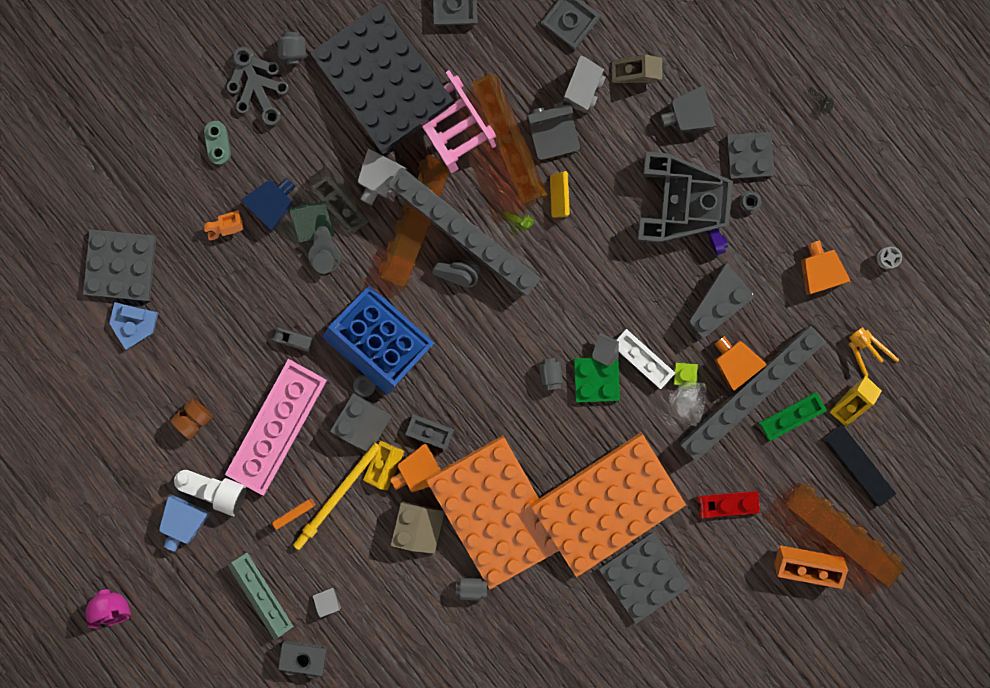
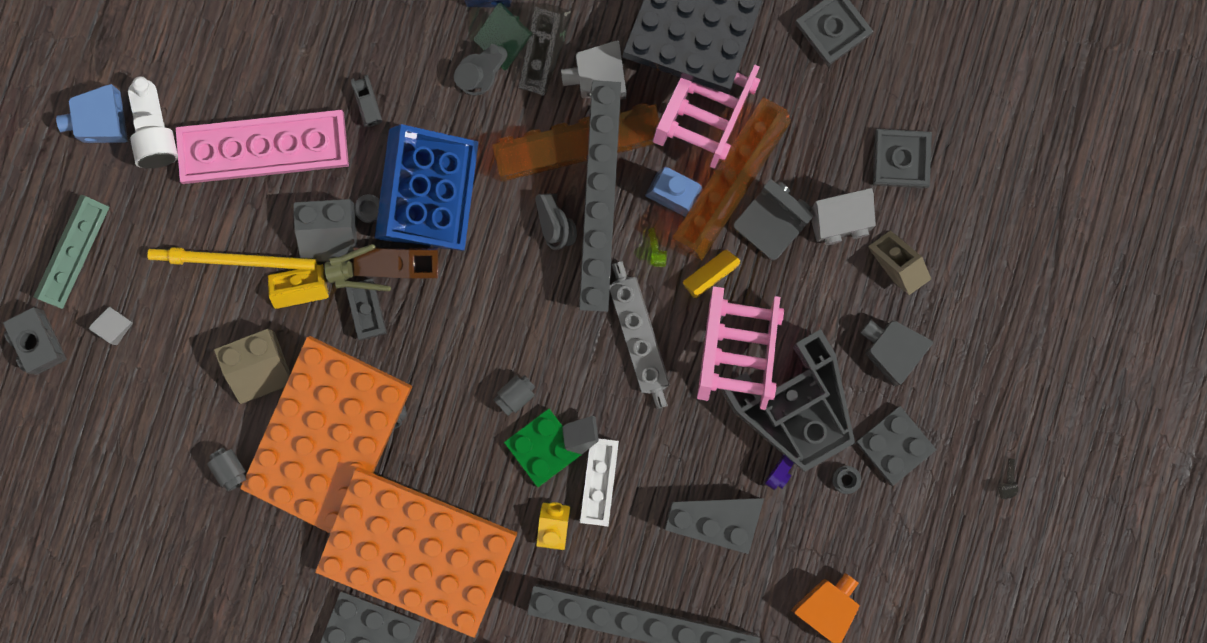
camera: 50 degrees right, 5 degrees down
(191, 418) = (206, 52): dark orange wheel -> none
(305, 506) = (182, 226): orange tile -> none
(393, 430) = (339, 270): none -> olive plant
(414, 391) = (398, 262): none -> reddish brown slope
(416, 469) = (316, 320): orange torso -> none
(491, 181) = (674, 191): none -> medium blue torso
(567, 268) = (639, 335): none -> light grey plate
(616, 231) = (714, 356): none -> bright pink fence
(650, 407) = (553, 525): none -> yellow bracket
(685, 373) = (614, 539): lime plate -> none
(688, 402) = (585, 562): clear cylinder -> none
(737, 362) = (665, 585): orange torso -> none

